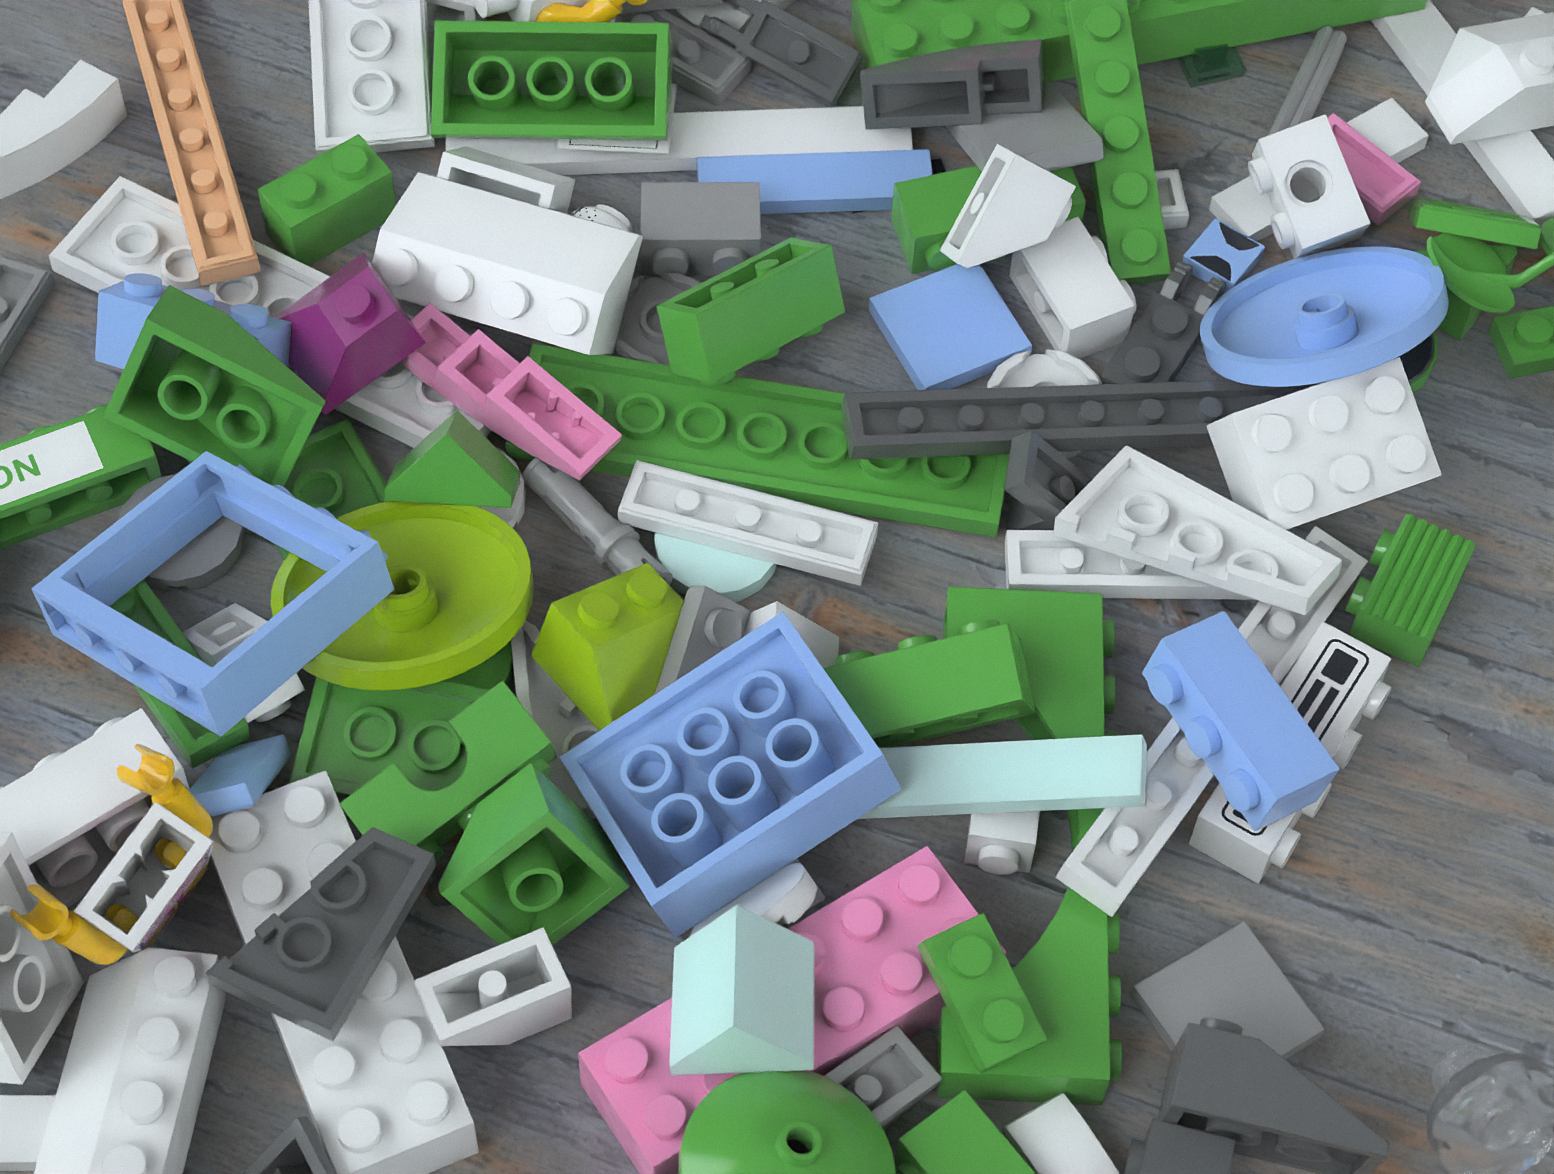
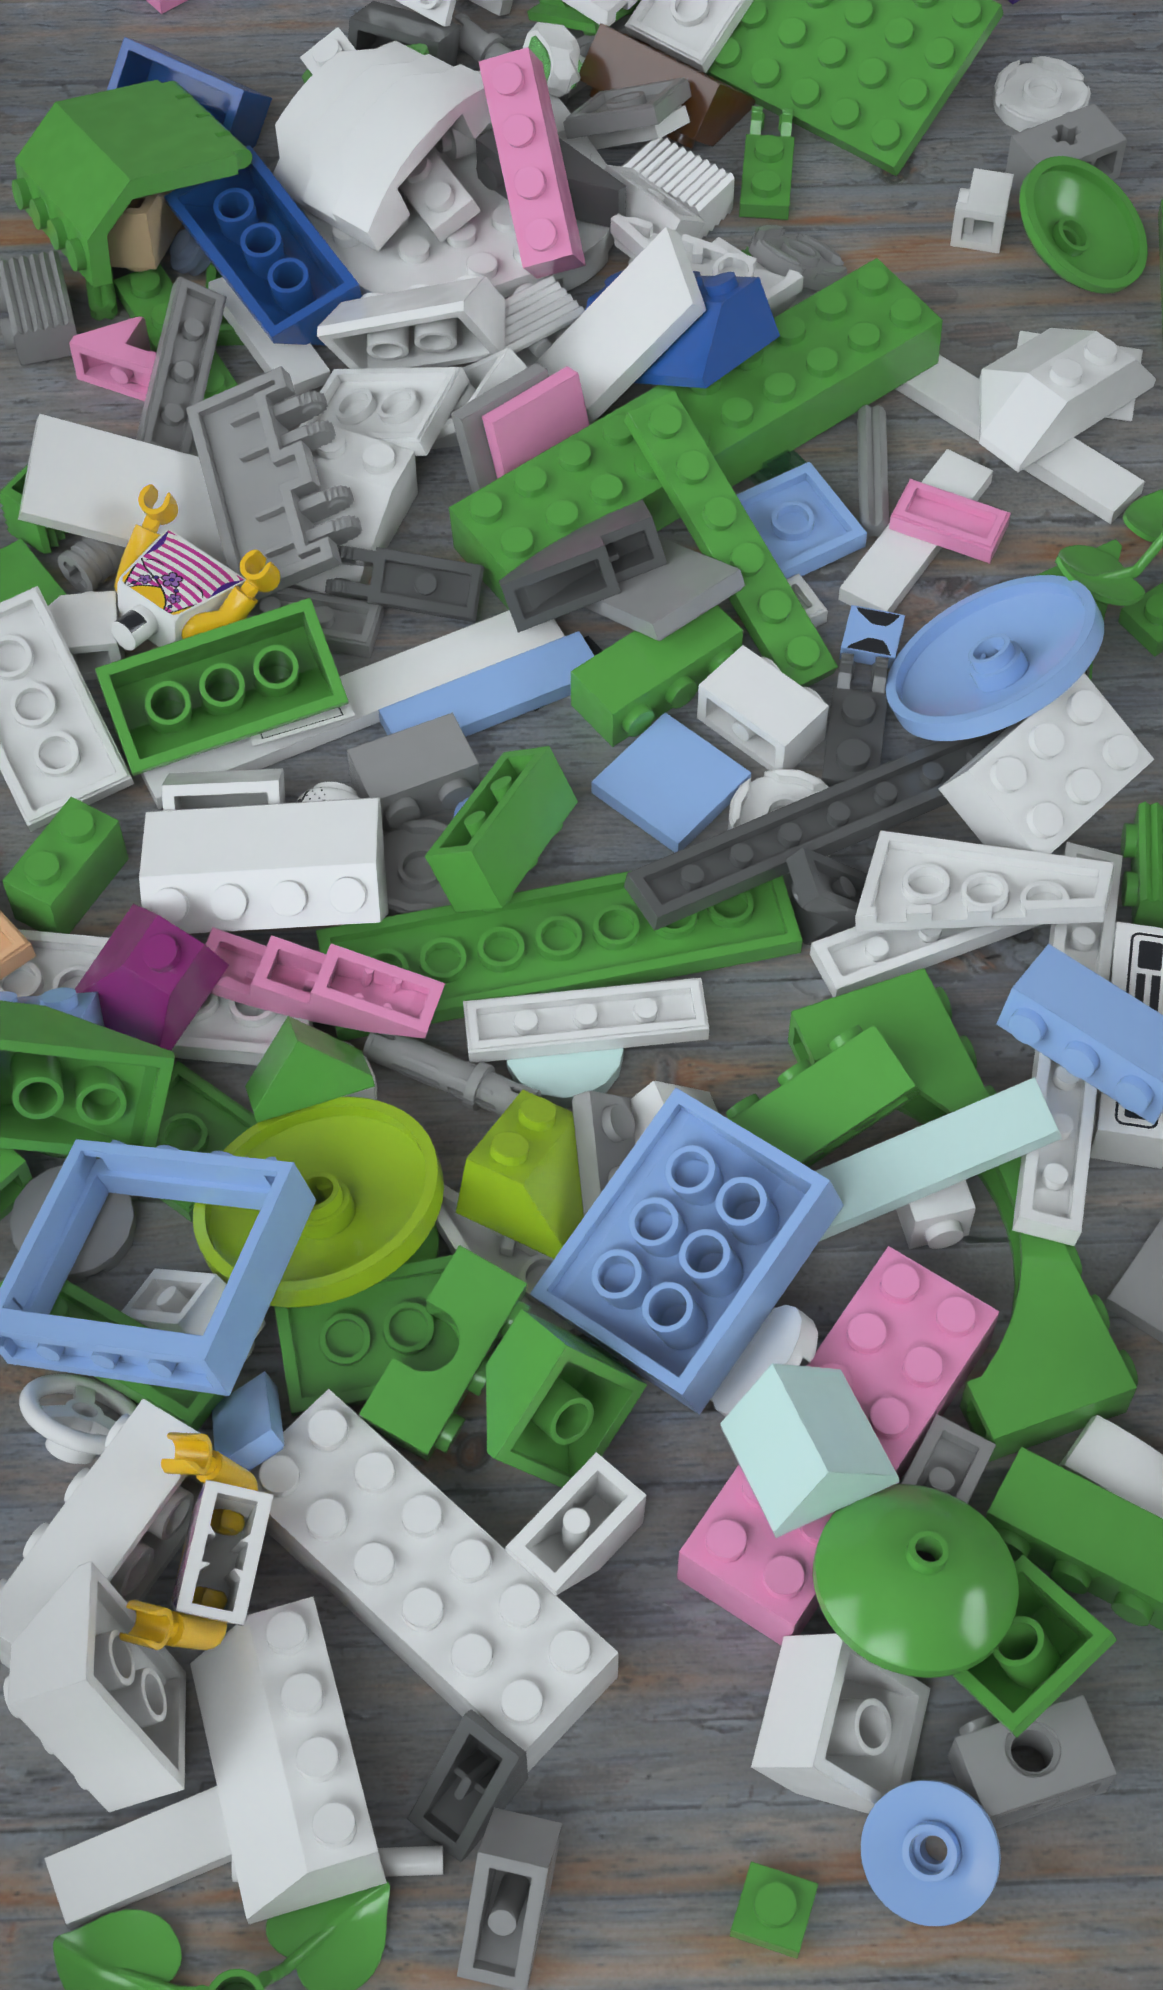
camera: 20 degrees left, 0 degrees up
(81, 713) = (76, 1429): none -> white piece
(332, 938) = (417, 1543): dark grey wing -> none
(981, 992) = (1001, 1356): bright green plate -> none
(1008, 210) = (686, 661): white slope -> none
(1199, 117) = (802, 520): none -> light blue plate
(1310, 154) = (924, 522): white brick -> none
(1474, 222) = (1072, 532): bright green tile -> none

